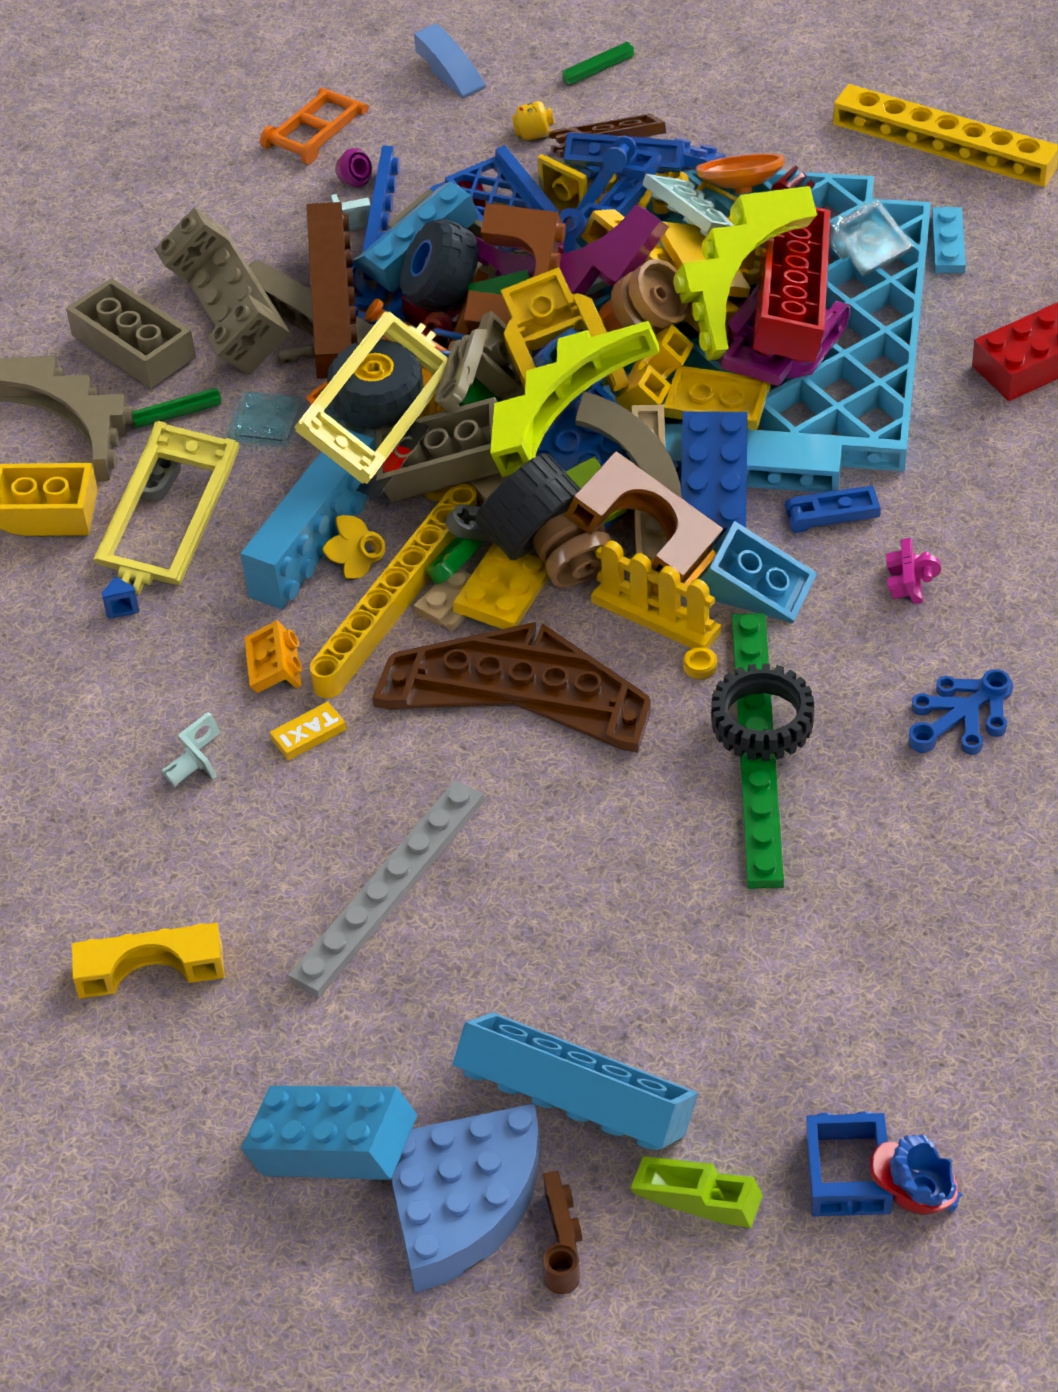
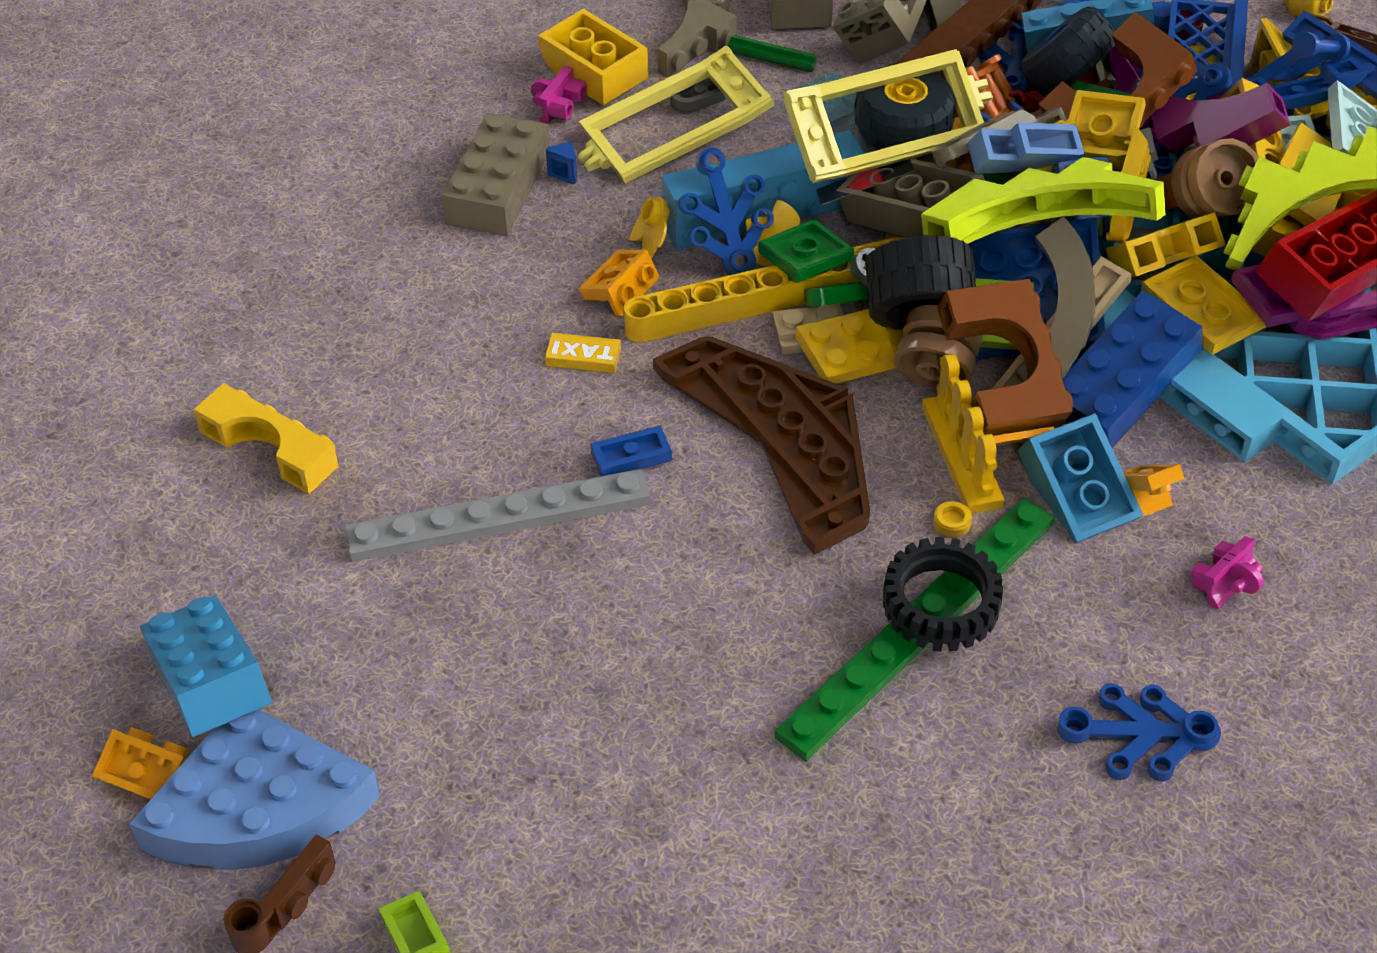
camera: 40 degrees right, 0 degrees up
(34, 553) = (558, 95): none -> dark pink hips
(78, 643) = (496, 174): none -> dark tan brick
(193, 757) = (482, 303): light aqua bracket -> none
(258, 604) = (651, 224): none -> yellow plate
(318, 551) = (727, 218): none -> blue plant
(355, 1237) = (138, 764): none -> light orange bracket
(399, 541) = (806, 250): none -> green tile
(433, 774) = (631, 451): none -> blue plate
(507, 357) = (1024, 147): none -> medium blue slope
(575, 1080) = (429, 782): dark azure brick -> none
(806, 543) = (1152, 485): none -> light orange slope
(832, 508) = (1222, 469): blue plate -> none

